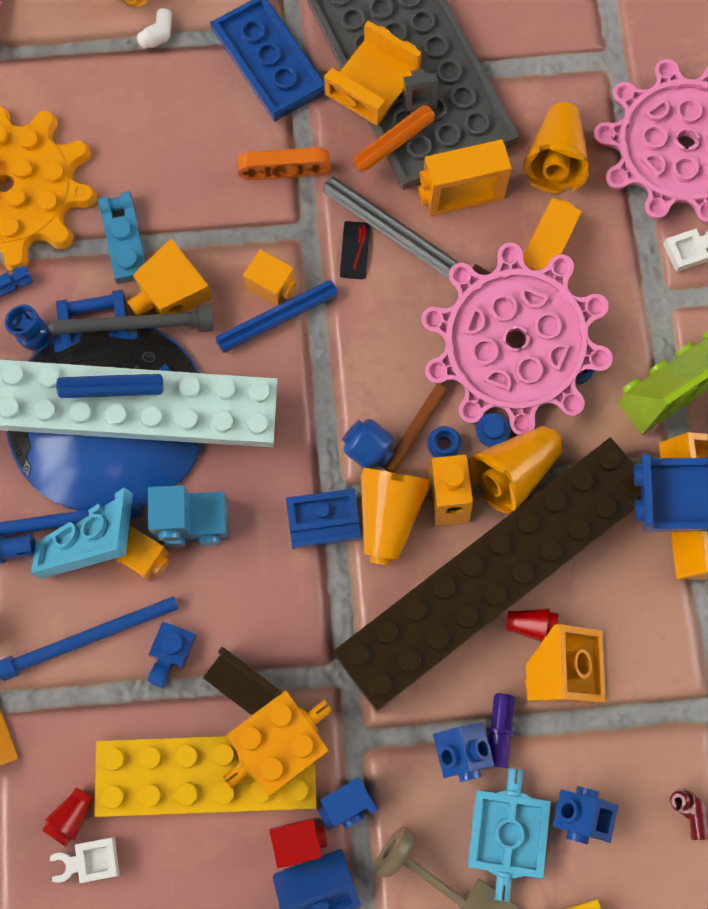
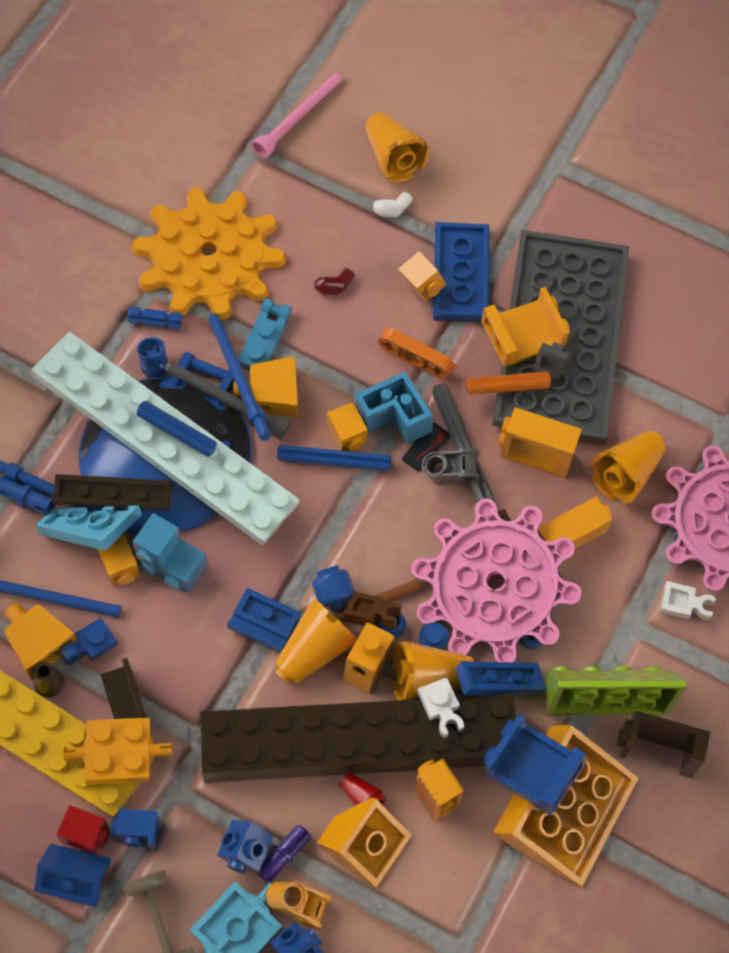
camera: 30 degrees right, 10 degrees down
(86, 490) = (112, 491): none -> dark brown tile
(112, 684) = (36, 636): none -> light orange torso
(155, 144) = (334, 285): none -> dark red arm
(164, 722) = (47, 680): none -> dark brown cone
(174, 319) = (254, 412): none -> blue bar
(238, 83) = (422, 276): none -> light orange brick
(305, 222) = (395, 402): none -> dark azure brick
(401, 252) = (458, 466): none -> dark grey piece
(417, 444) = (369, 609): none -> reddish brown plate
(549, 769) = (304, 904): none -> light orange piece
(554, 489) = (440, 703): none -> white plate
(586, 430) = (500, 678): none -> blue plate
(604, 573) = (438, 788): none -> light orange brick

